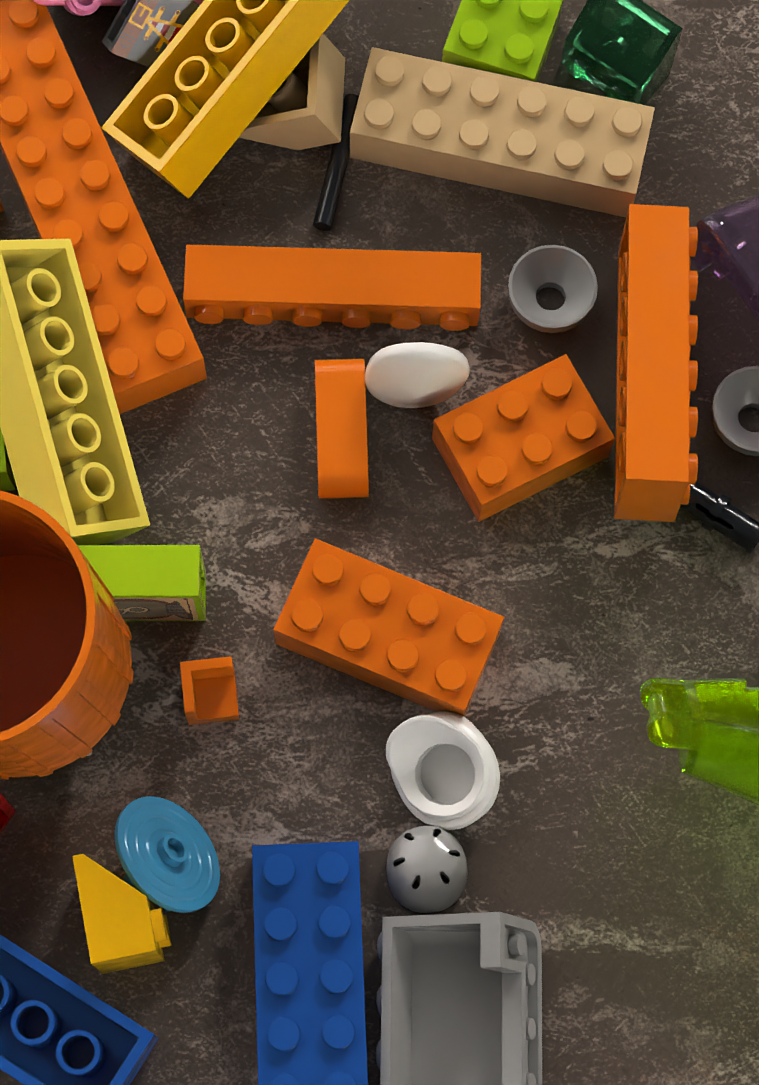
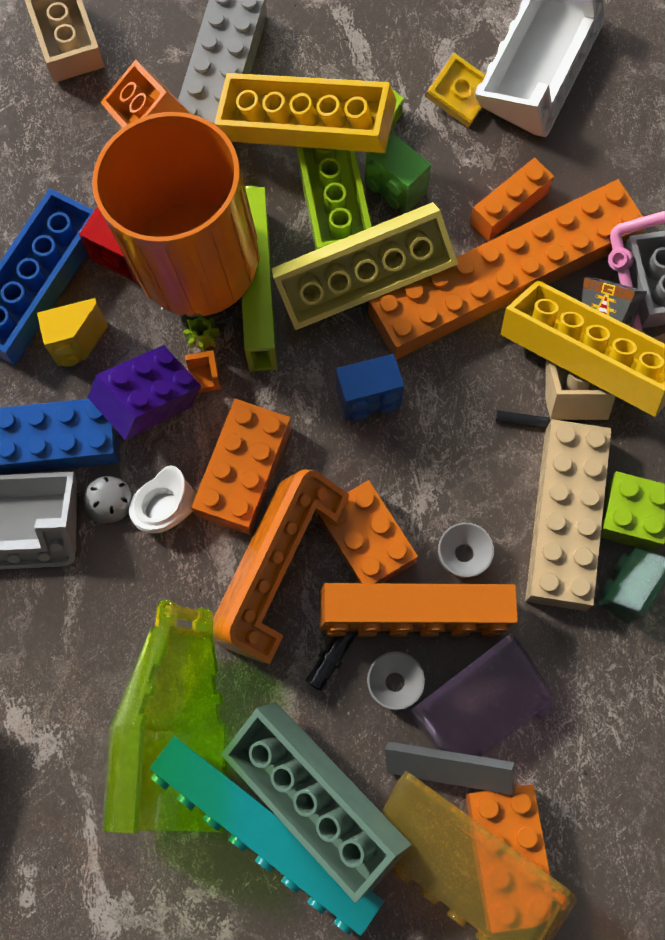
camera: 90 degrees right, 0 degrees up
(144, 699) = (193, 333): none -> lime gear
(166, 854) = (103, 348): dark azure shield -> none
(251, 782) = (143, 391): none -> dark purple brick
(269, 407) = (369, 387): none -> blue brick
(332, 286) = (455, 423): orange brick -> none
(341, 429) = (366, 433): orange beam -> none
(416, 374) = (401, 468): white piece -> none
(565, 579) = (264, 564): none -> orange windscreen

